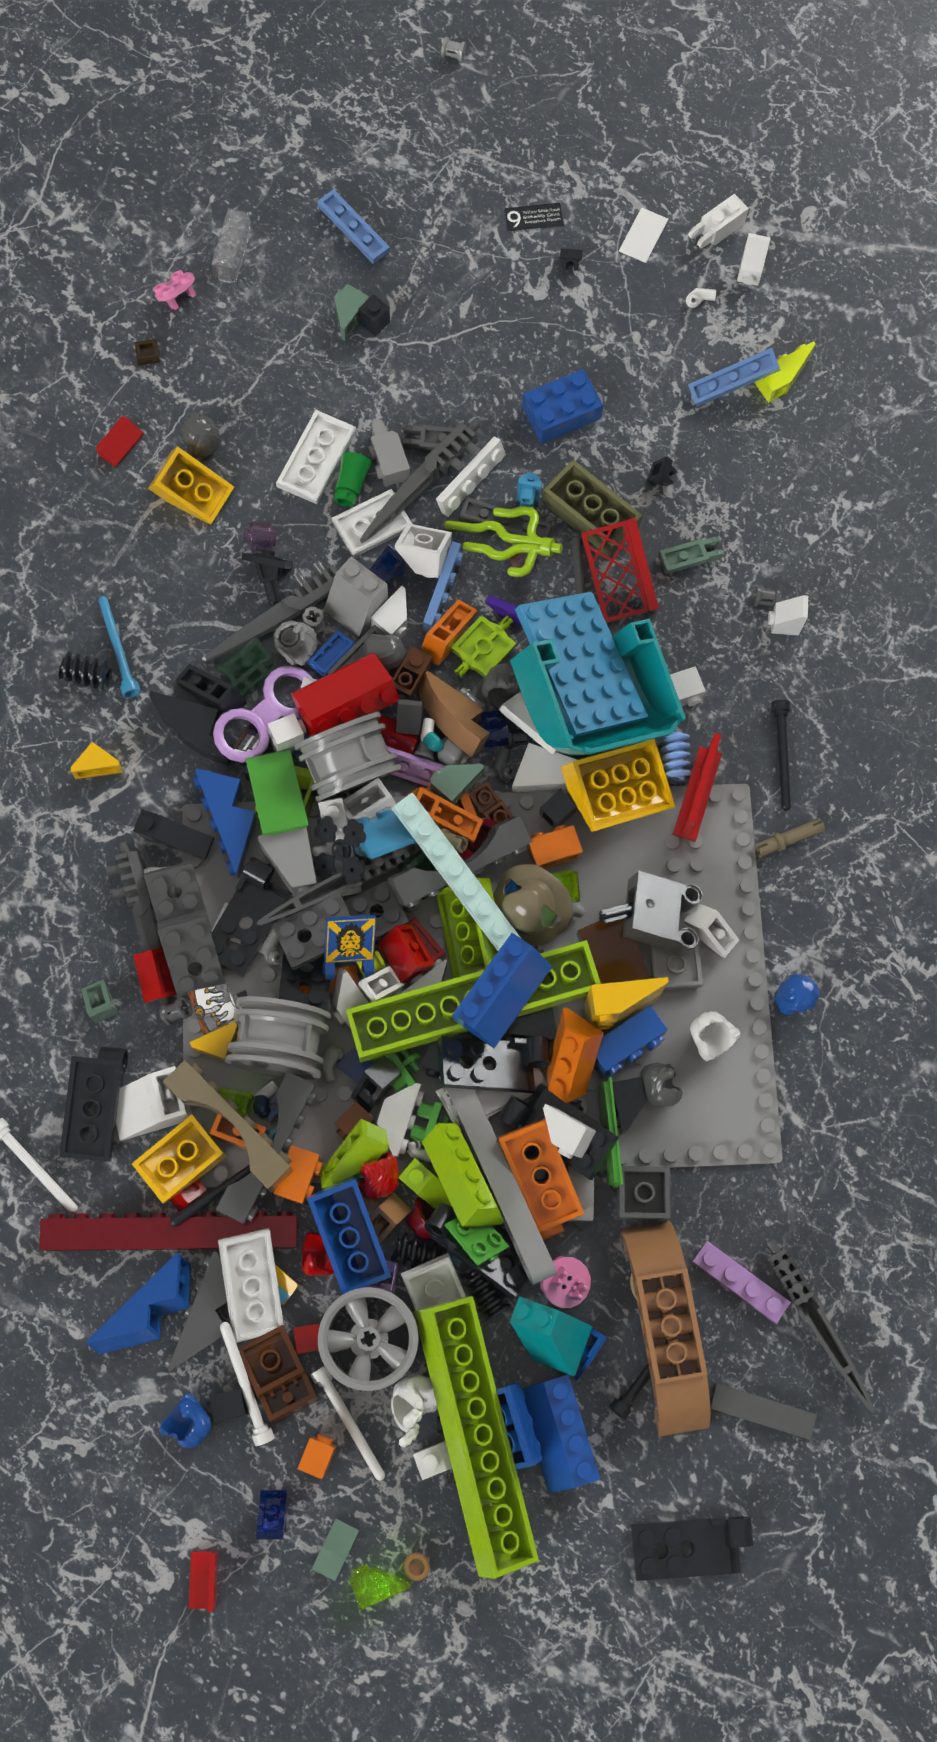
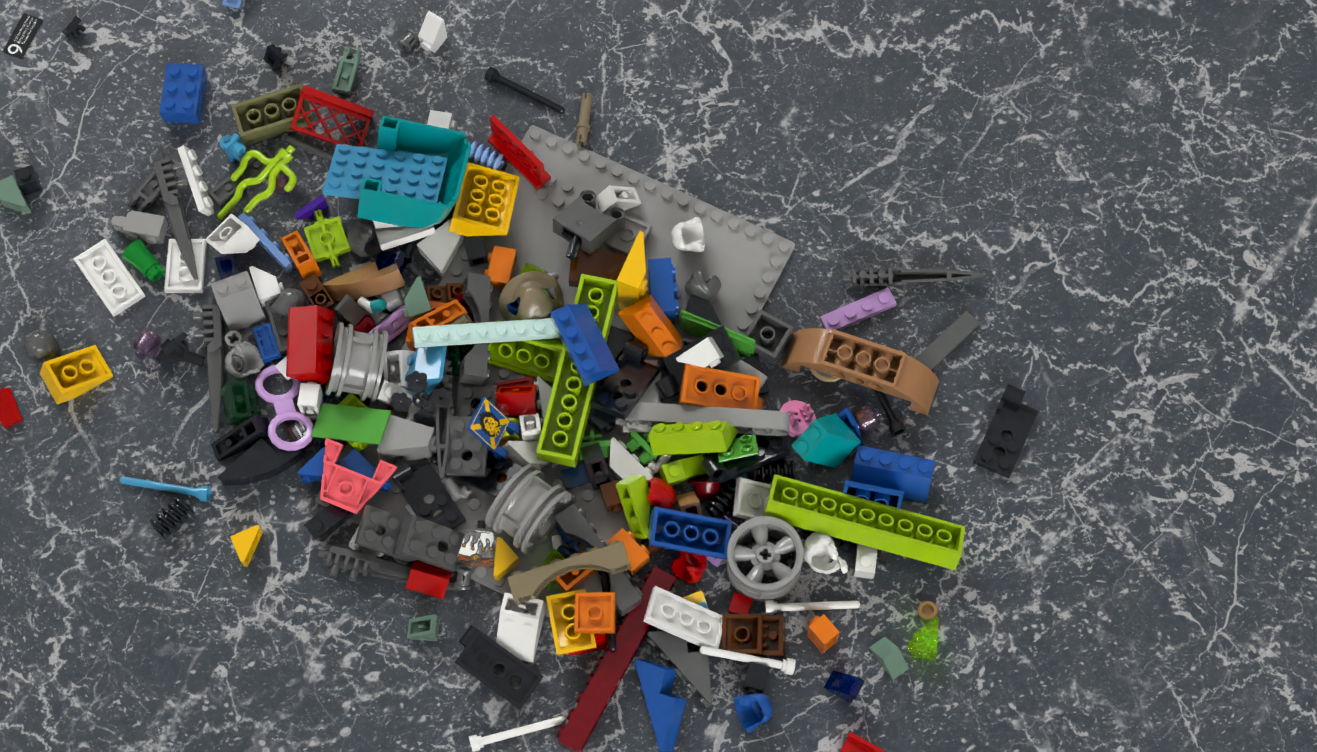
camera: 55 degrees left, 5 degrees down
(198, 1180) = (595, 612): none -> orange plate
(204, 832) = (348, 488): none -> coral wing
(611, 1366) = (867, 418): none -> clear purple head
(797, 994) = (692, 171): blue hair -> none

